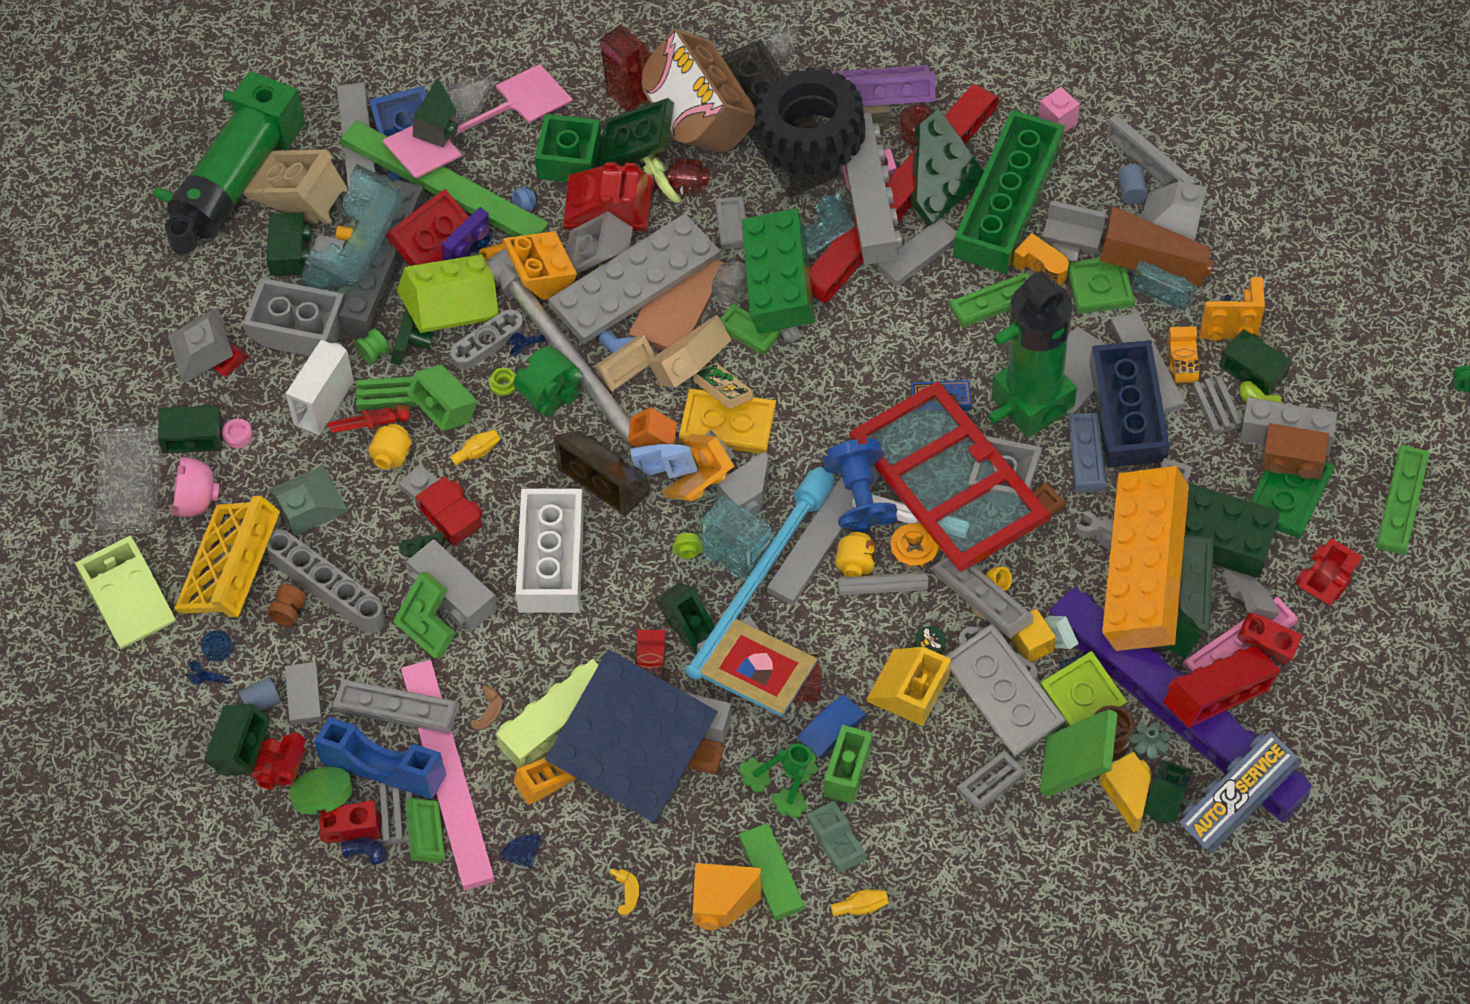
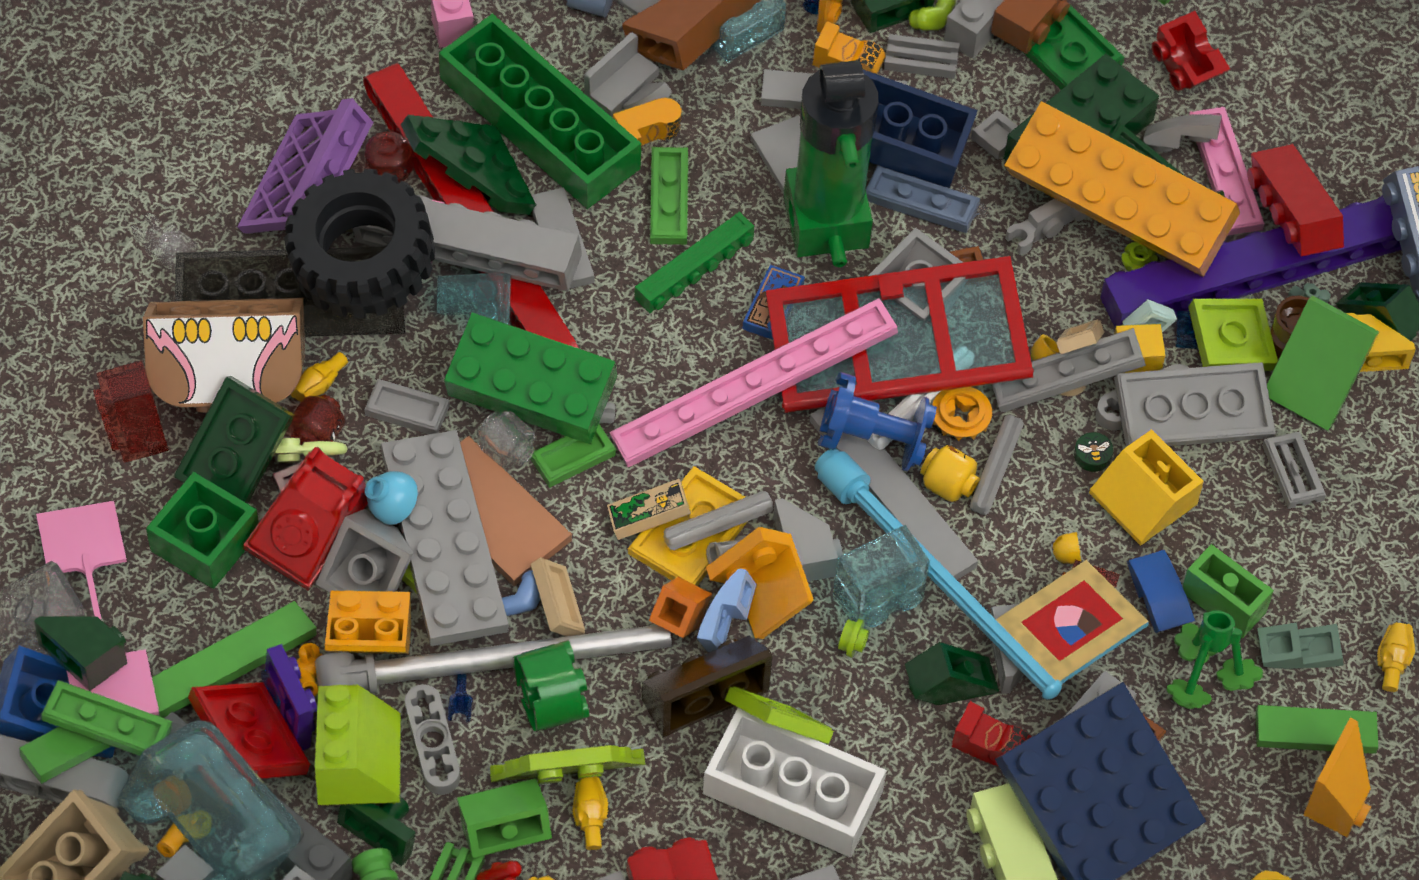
camera: 70 degrees left, 0 degrees up
(392, 148) = (104, 719): none -> bright green tile
(499, 376) = (507, 734): lime plate -> none
(500, 421) = (551, 766): none -> lime wing
(524, 198) = (241, 613): medium blue plate -> none
(589, 516) = (779, 714): none -> lime tile
(640, 229) = (391, 496): none -> medium azure brick
(689, 353) = (589, 530): tan slope -> none
(724, 164) = (319, 377): none -> yellow piece
(734, 427) = (718, 520): none -> light grey axle
(836, 655) = (1067, 548): none -> yellow hinge
(859, 405) = (753, 382): none -> bright pink tile
(944, 335) = (694, 263): none -> green piece
(1012, 588) = (1080, 336): none -> tan tile
(1099, 286) = (708, 90): bright green tile -> none
(1270, 638) = (1244, 138): red leg -> none

